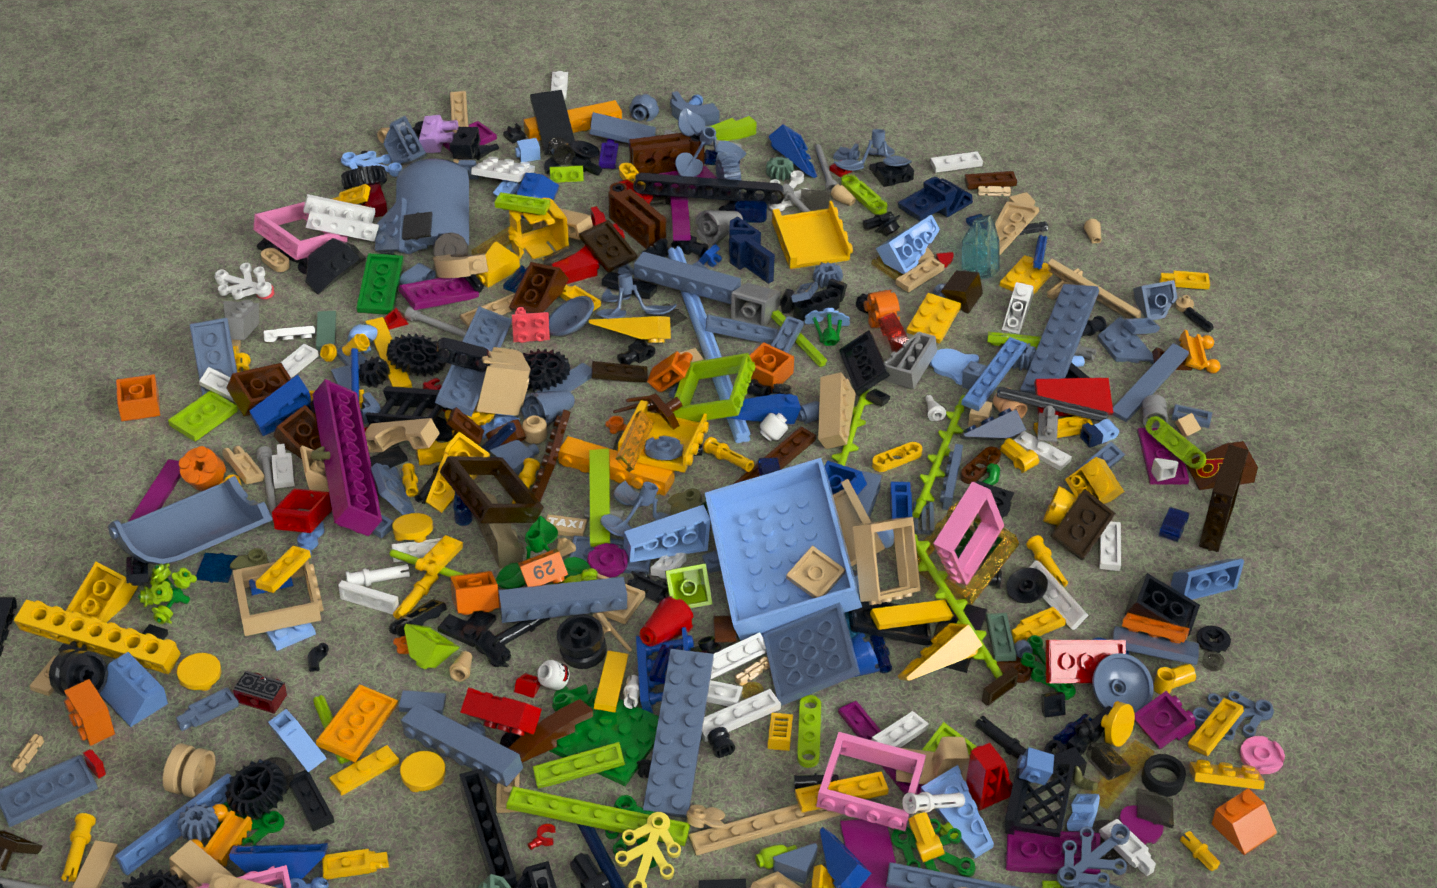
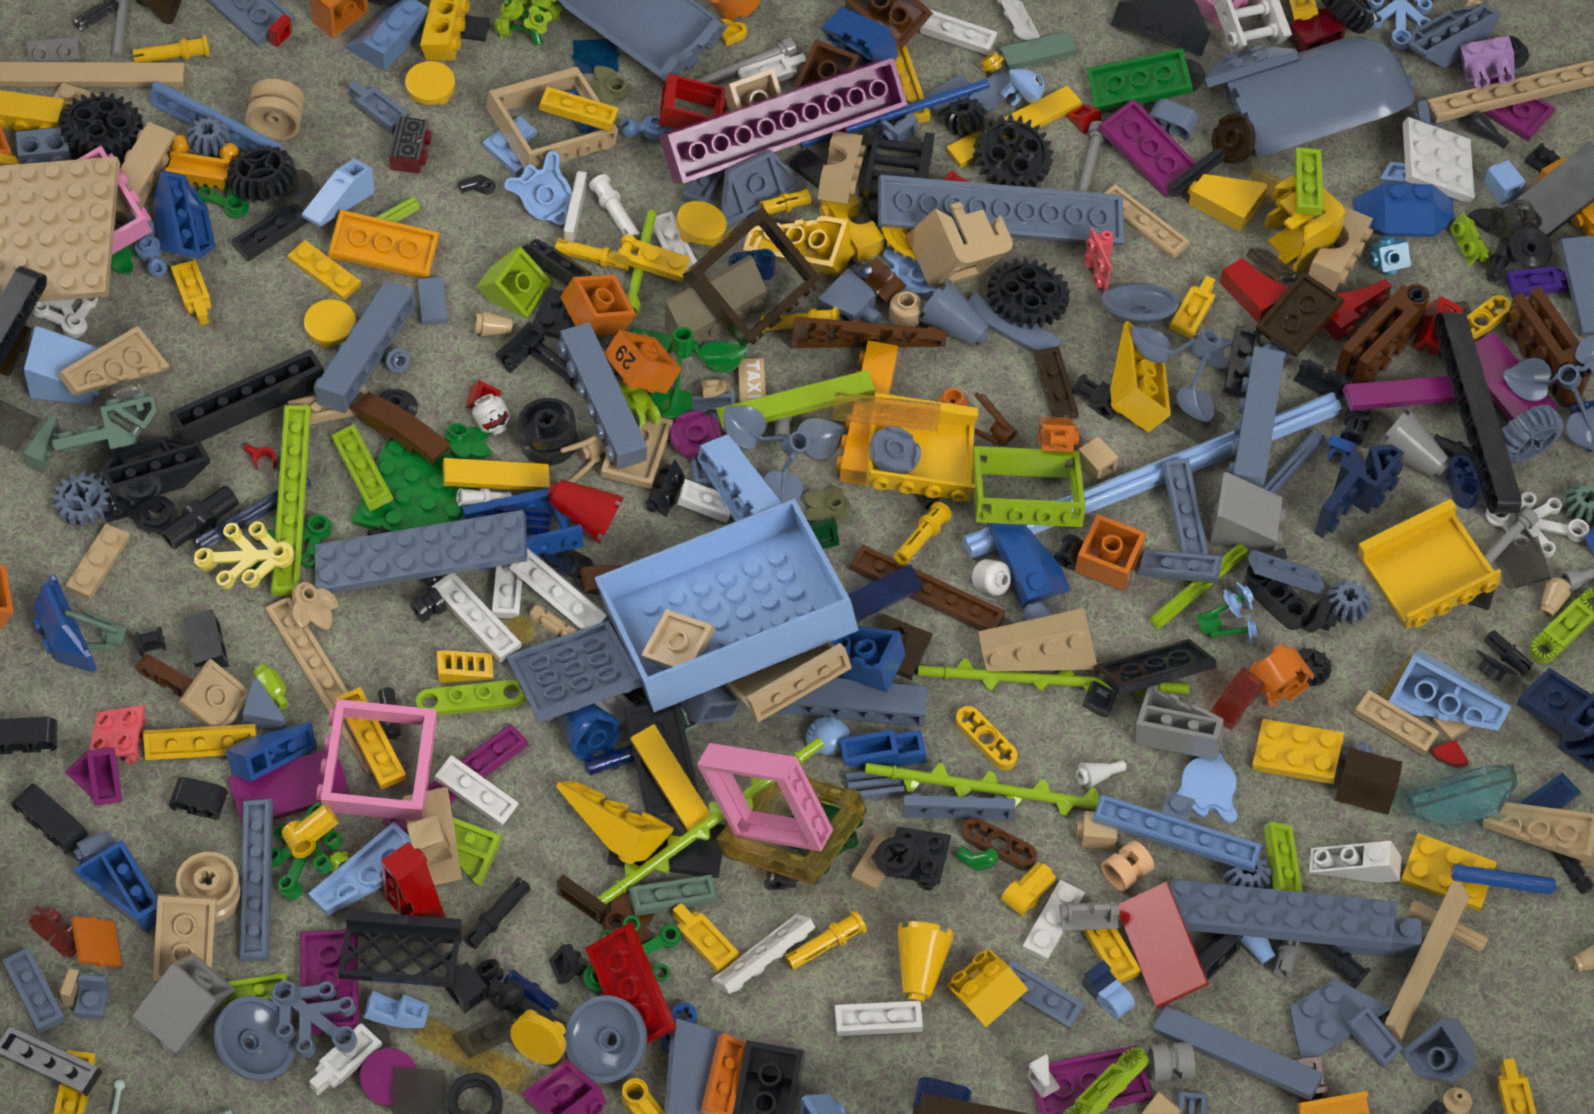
camera: 75 degrees right, 15 degrees up
(243, 465) = (761, 32): tan hinge -> none
(320, 455) = (764, 87): olive animal -> none
(346, 610) = (543, 191): none -> light blue tile
(359, 341) = (1003, 87): yellow cone -> none
(417, 226) = (1250, 84): clear smoke piece -> none
(454, 351) = (981, 184): black beam -> none
(459, 266) = (1190, 151): tan arch -> none
(465, 143) = (1467, 98): black brick -> none
(465, 425) = (865, 227): reddish brown slope -> none
(501, 712) = (407, 367): red wedge -> none
(515, 279) = (1215, 231): clear blue tile -> none
(539, 288) = (1179, 254): reddish brown slope -> none
(570, 201) = (1389, 255): none -> dark azure brick
(666, 410) = (965, 439): reddish brown tile -> none
(690, 585) = (671, 523): lime slope -> none
(781, 388) = (1070, 575): black axle -> none
(905, 556) = (747, 688): tan window -> none
(926, 802) = (343, 814): white pin -> none
(1002, 428) = (1058, 847): slope -> none
(1021, 647) = (654, 920): sand blue hinge -> none
(1025, 579) = (766, 908): black dish -> none
(1035, 766) = (423, 931): medium blue brick -> none
(1059, 406) = (1129, 914): black axle -> none
(1082, 782) = (444, 1007): olive animal -> none
(1083, 524) = (892, 971): dark brown tile -> none

